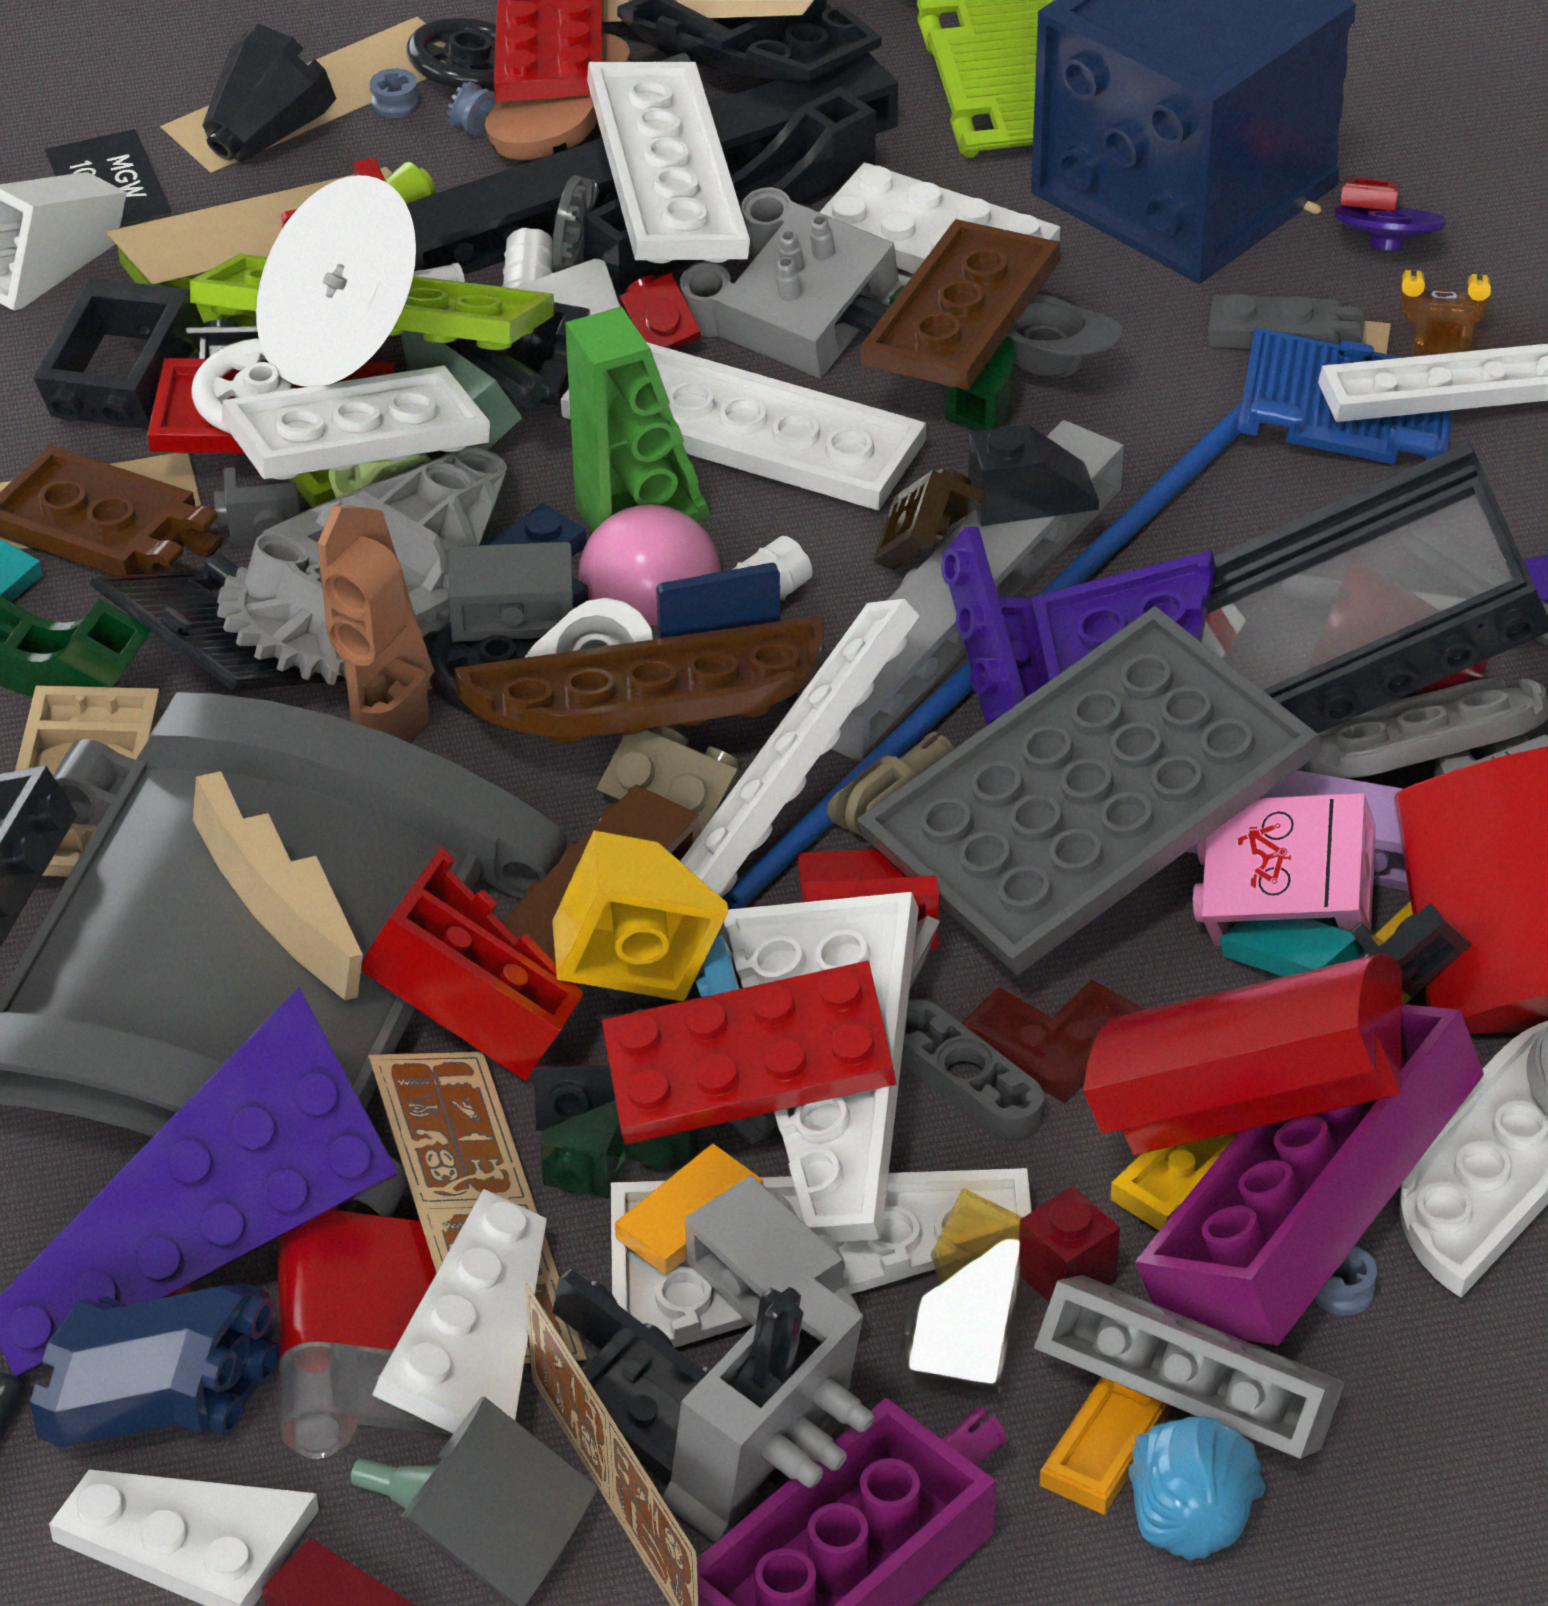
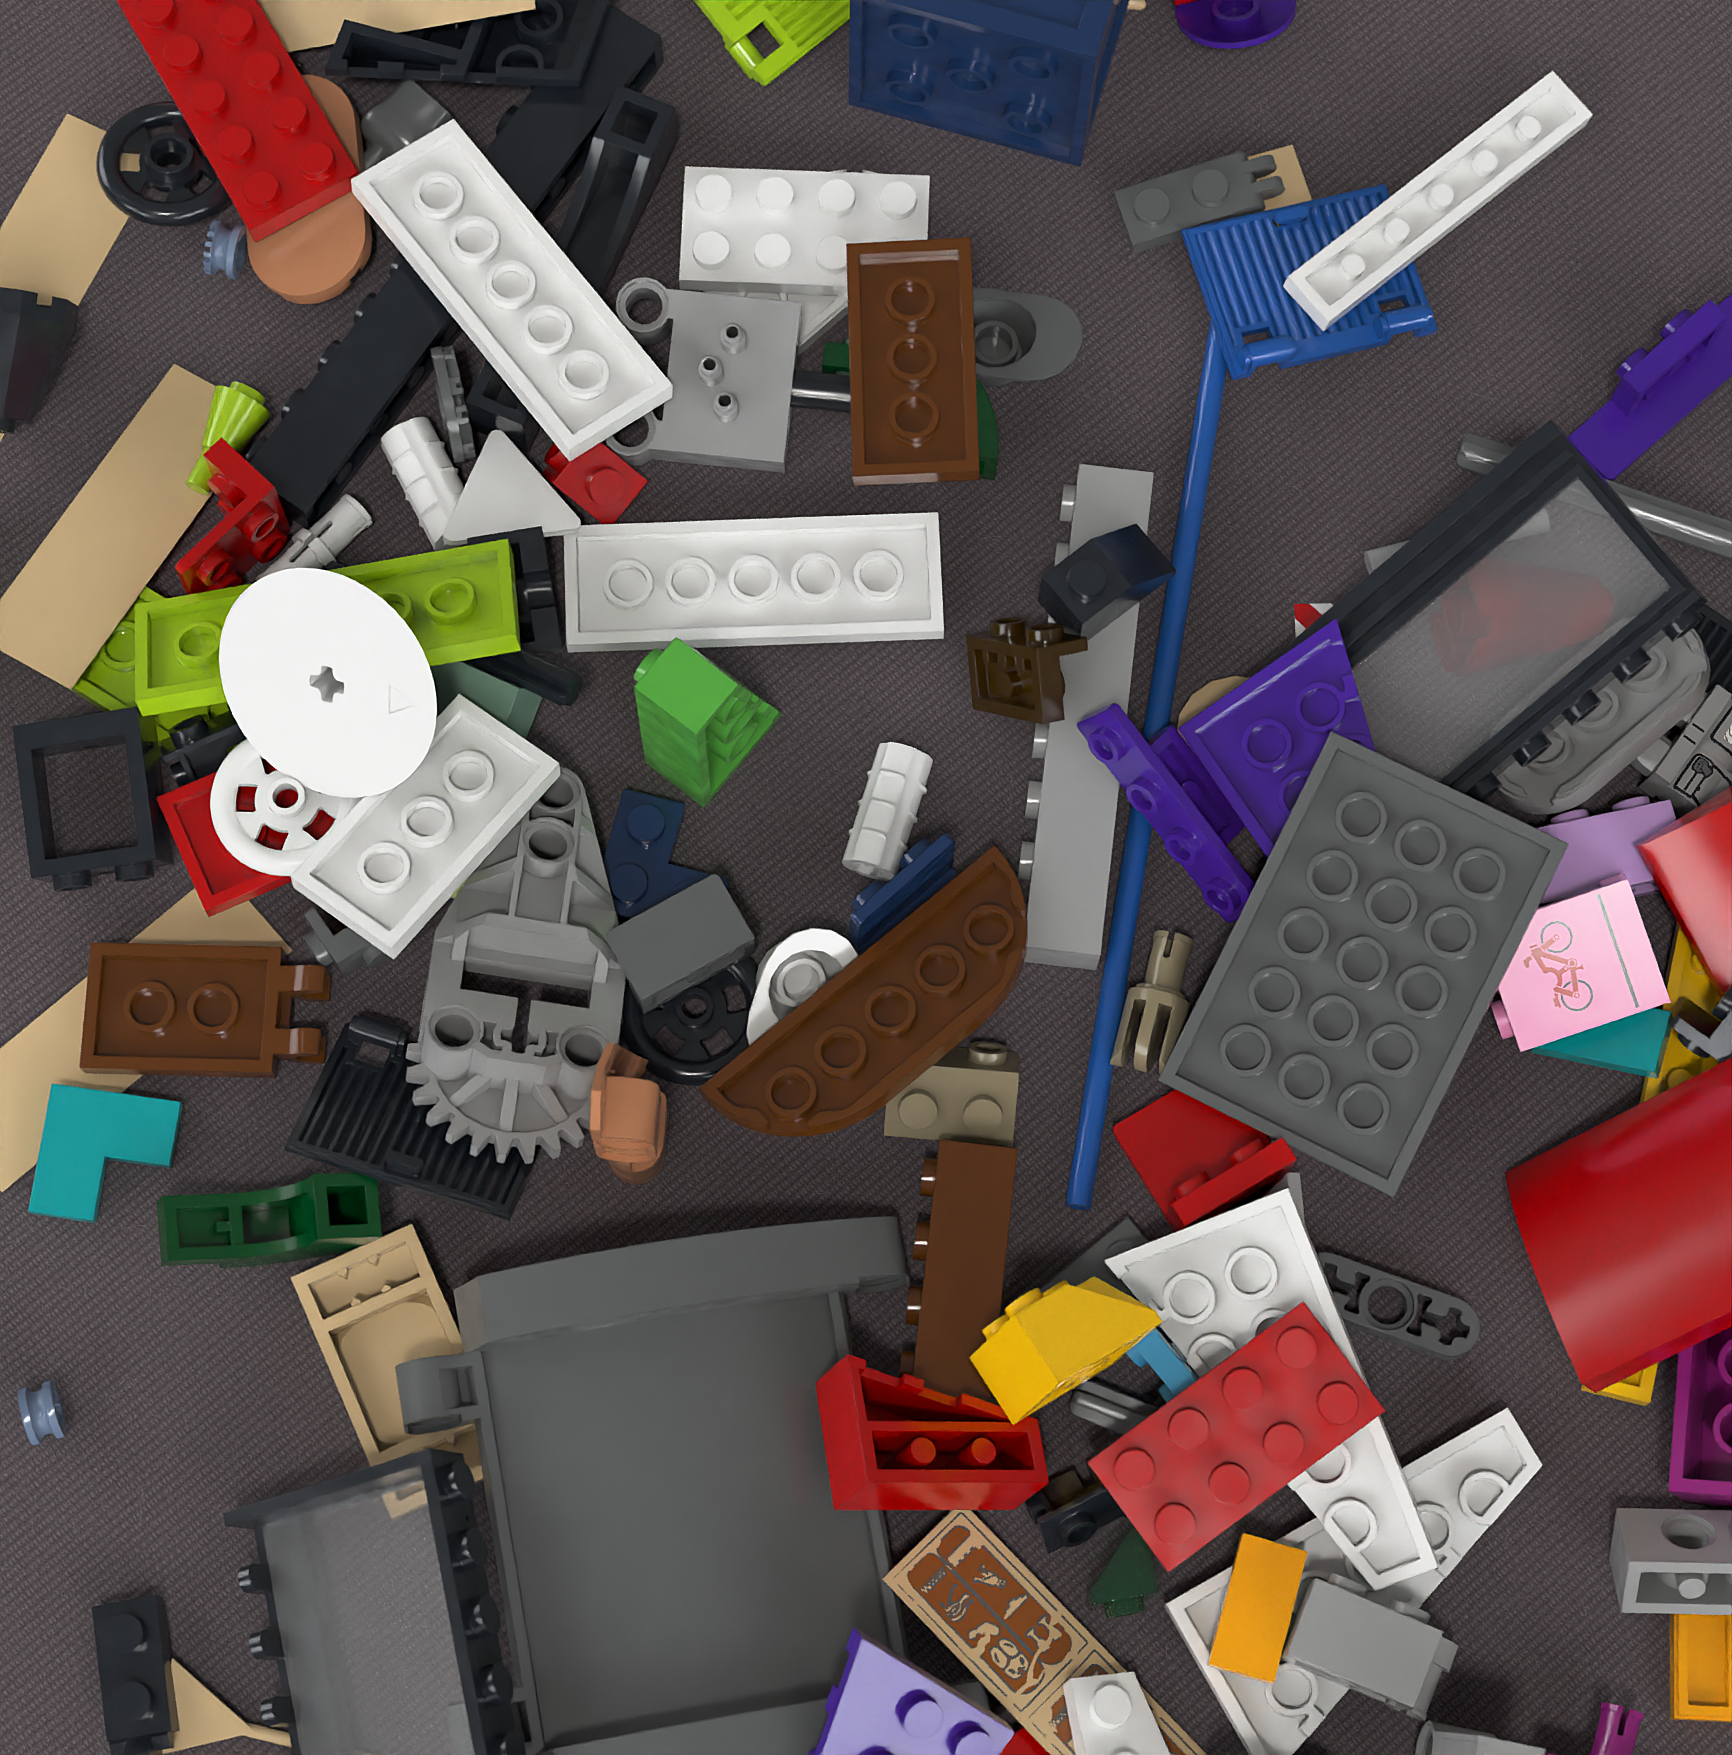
camera: 30 degrees left, 30 degrees up
(282, 894) = (744, 1478): tan slope -> none
(394, 93) = (122, 235): sand blue bush -> none
(642, 549) = (769, 821): bright pink piece -> none
(798, 741) = (1064, 1033): white plate -> none
(967, 1323) = (1554, 1614): clear smoke slope -> none
(970, 1232) = (1514, 1528): clear yellow tile -> none
(1044, 1046) = (1450, 1241): clear red tile -> none
(1066, 1241) = (1588, 1481): dark red brick -> none
(1441, 317) = (1353, 131): clear orange piece -> none

